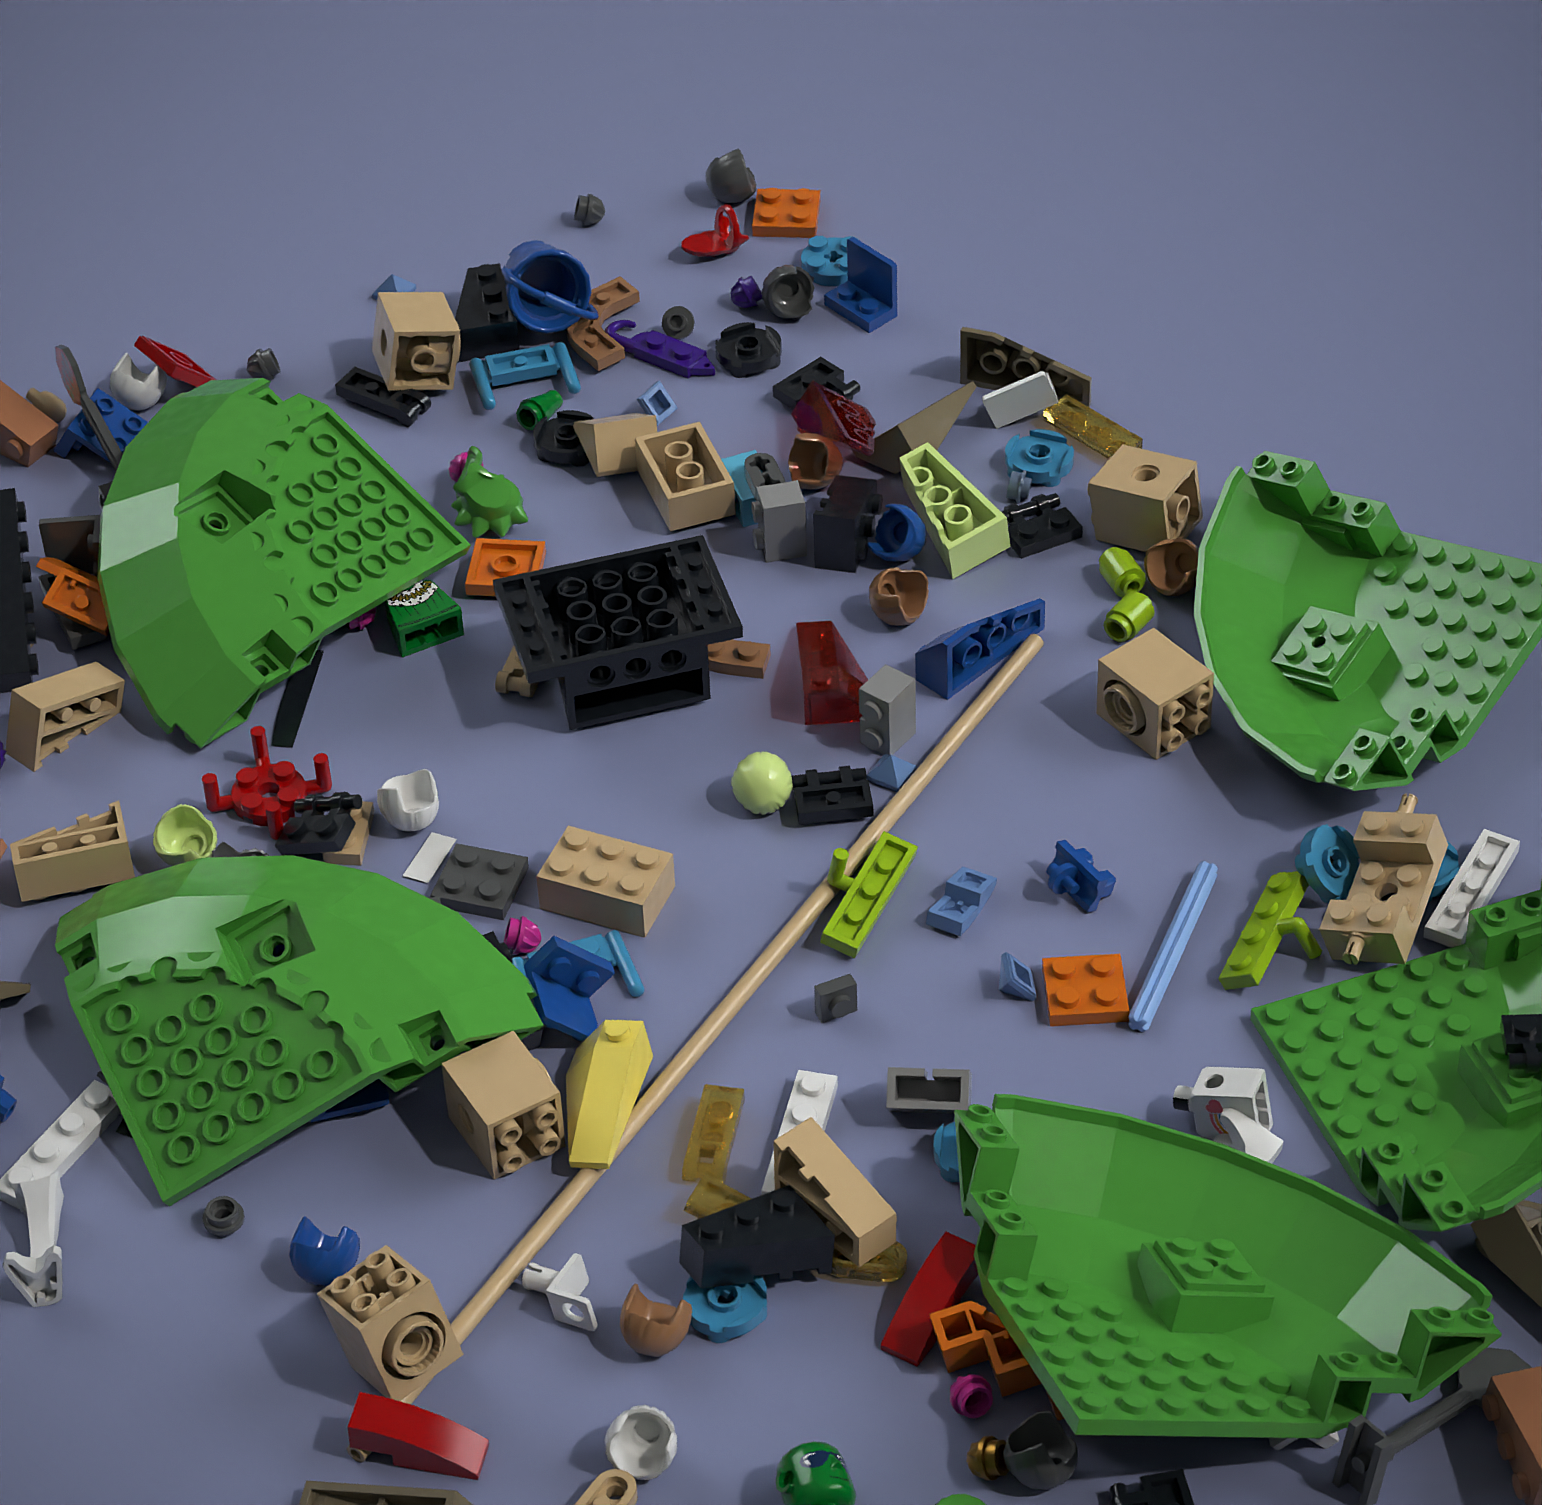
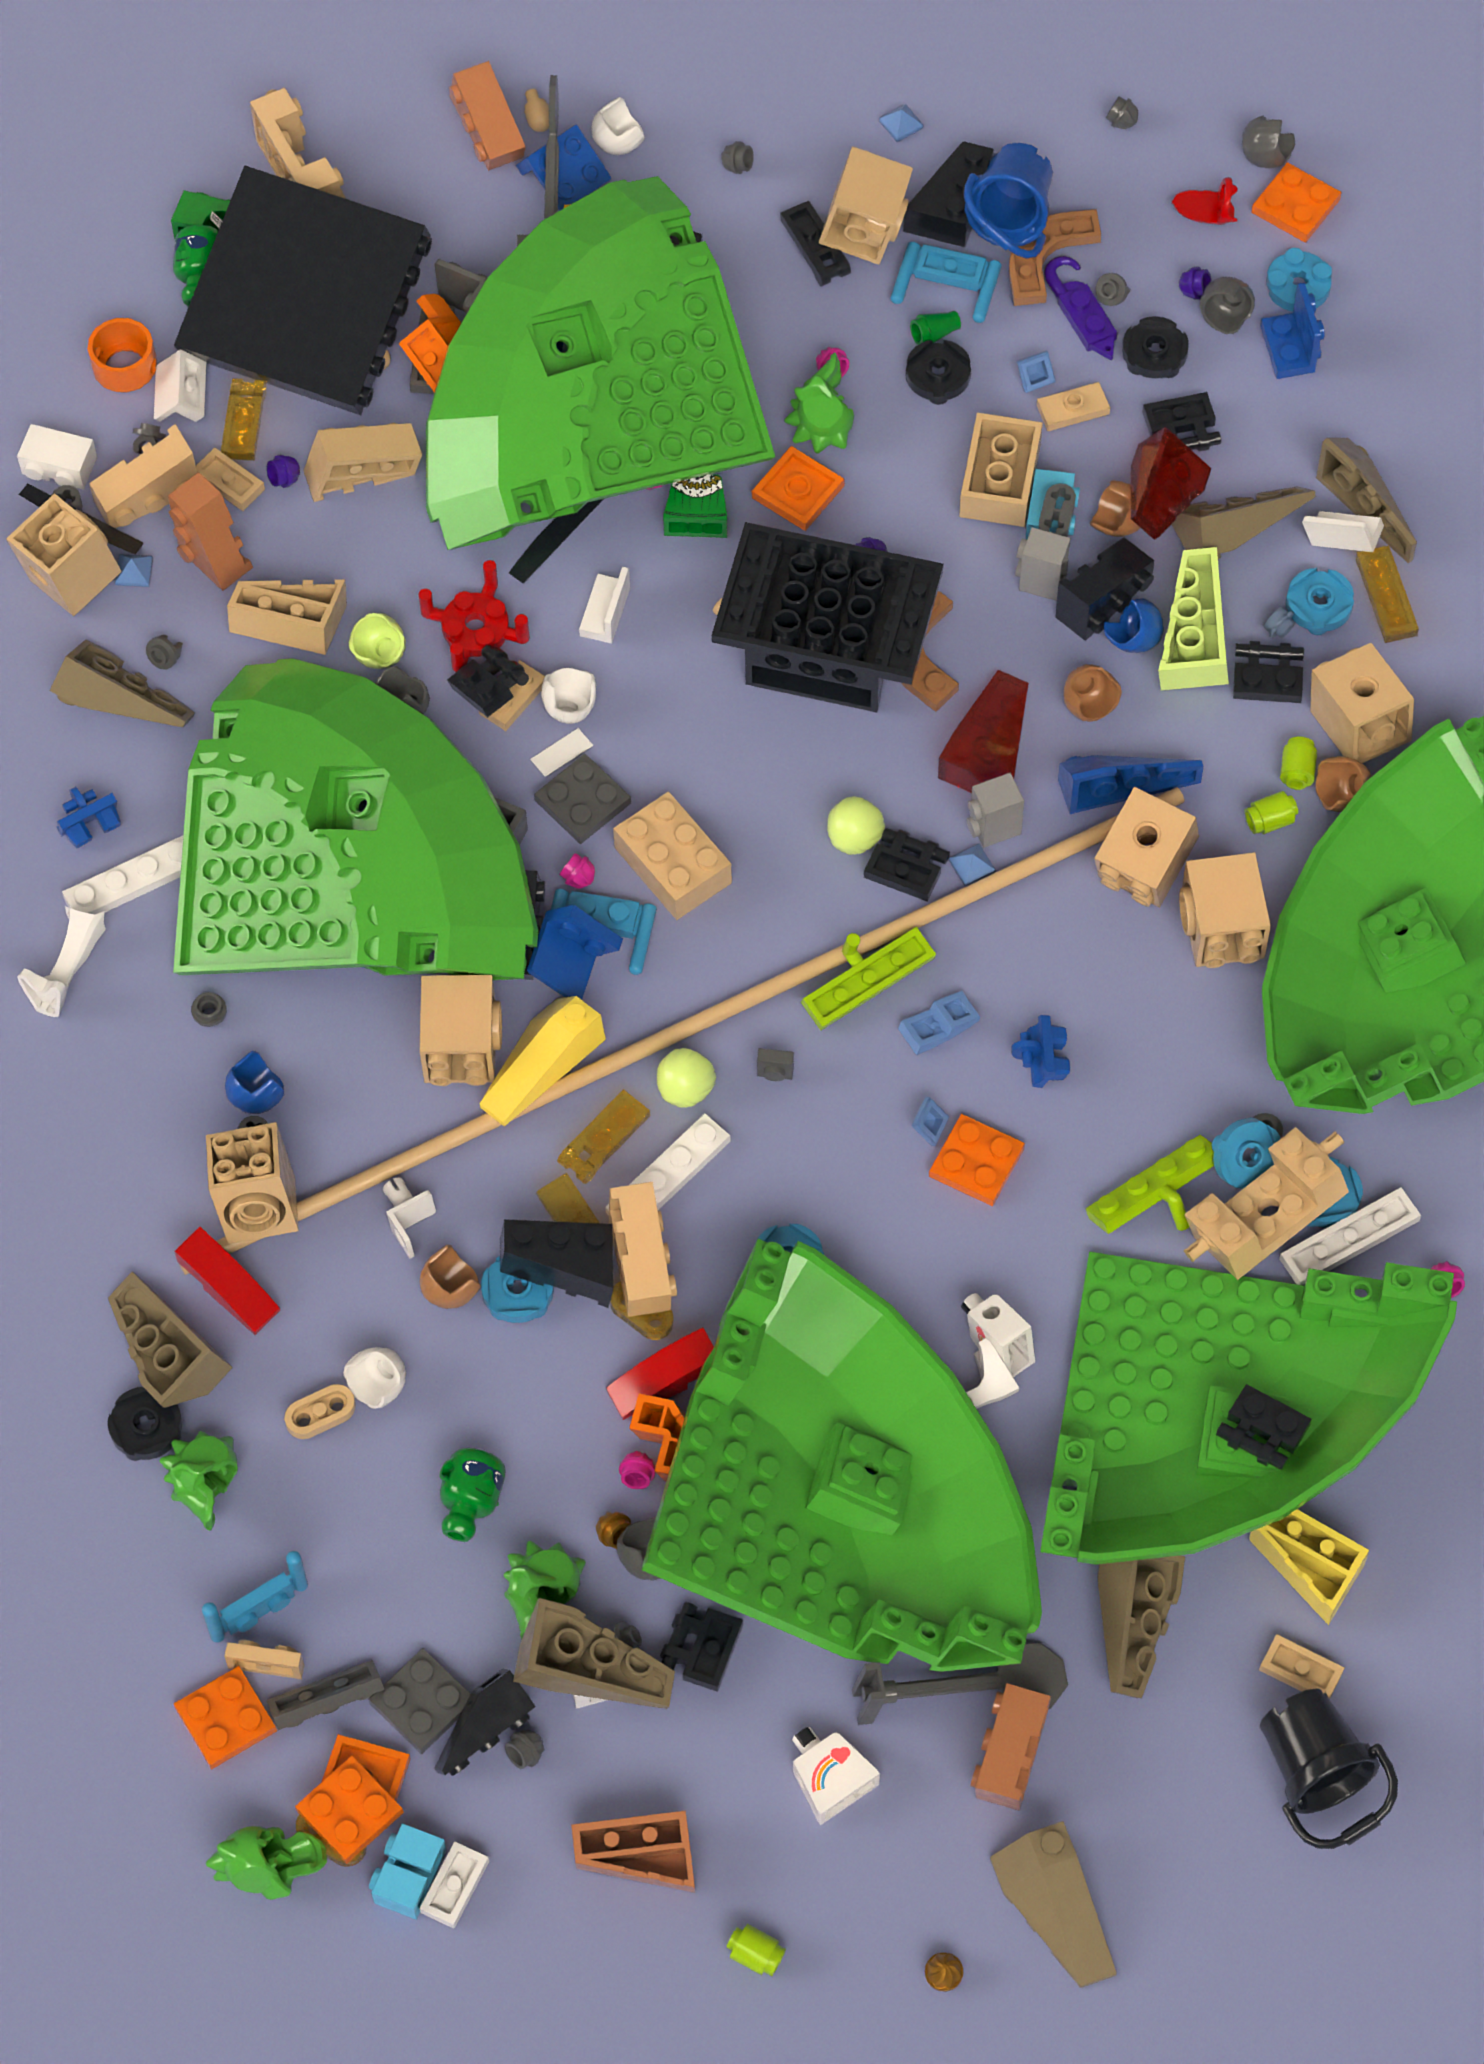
camera: 30 degrees right, 20 degrees up
(173, 362) = (660, 126): red plate -> none
(390, 727) = (605, 606): none -> white panel
(611, 441) = (967, 392): tan slope -> none
(713, 412) = (1073, 406): none -> tan plate
(757, 1046) = (685, 1077): none -> yellowish green hair
(912, 1092) = (775, 1189): light grey piece -> none
(1048, 675) = (1142, 869): none -> tan brick
(1172, 947) = (1074, 1157): light blue axle -> none

